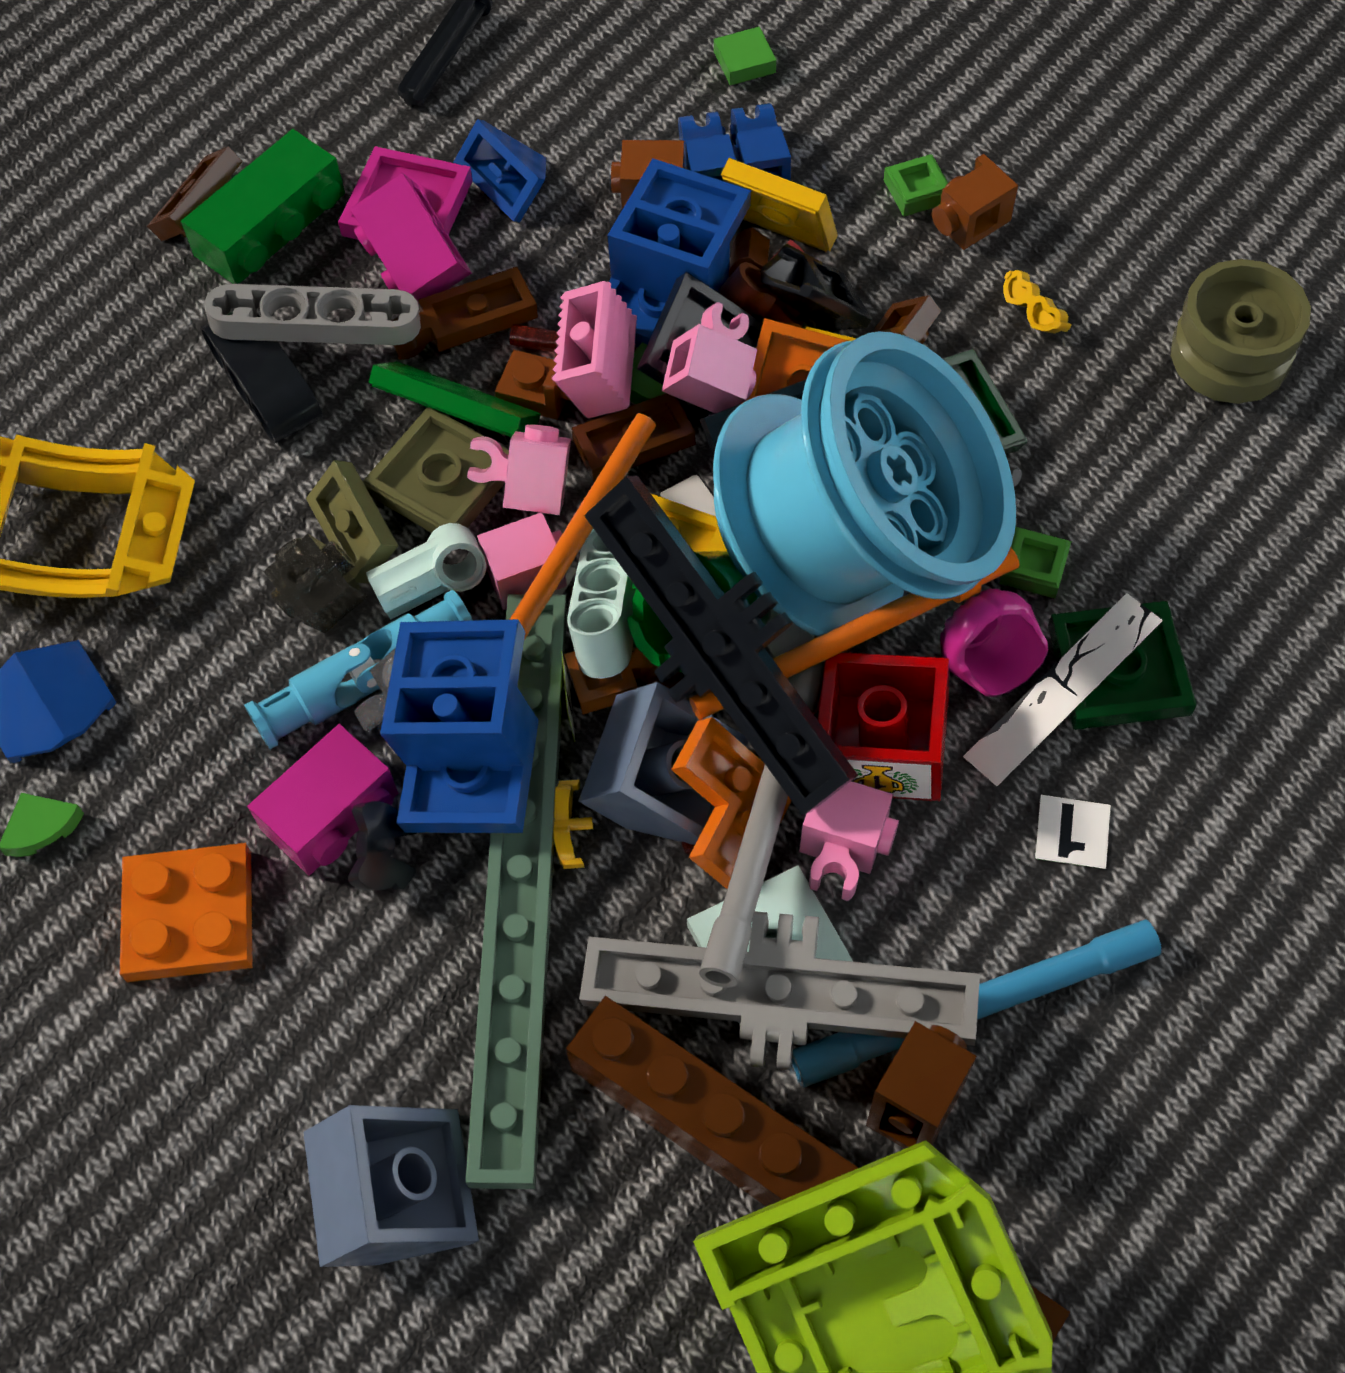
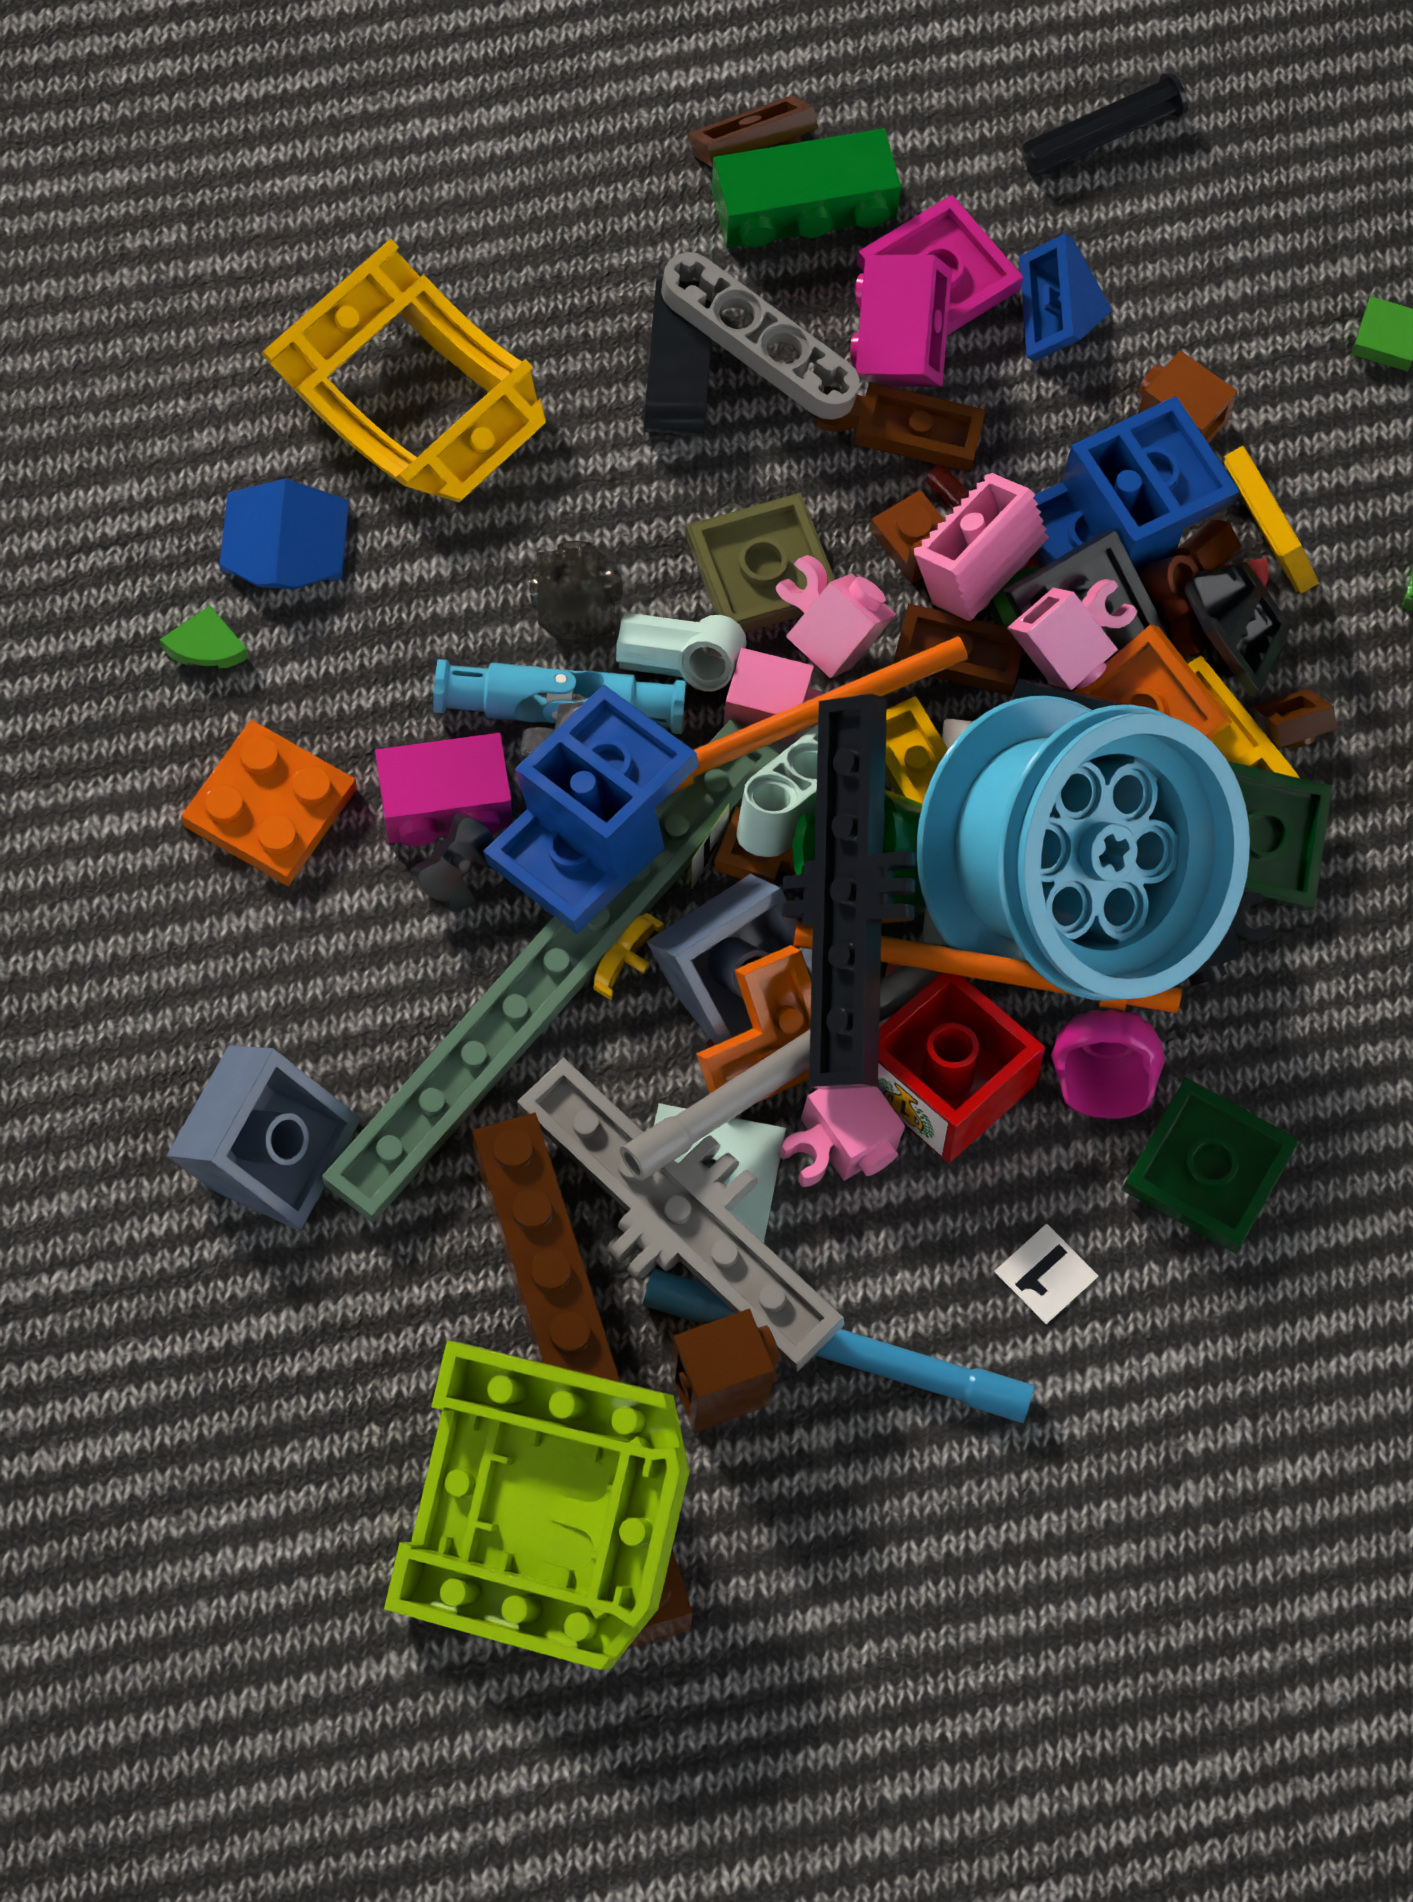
camera: 30 degrees right, 5 degrees up
(351, 518) = (652, 553): olive plate -> none
(452, 398) = (829, 501): green tile -> none
(756, 143) = (1299, 451): blue legs -> none
(1040, 562) = (1222, 1022): bright green tile -> none
(1062, 689) = (1136, 1146): white sticker -> none

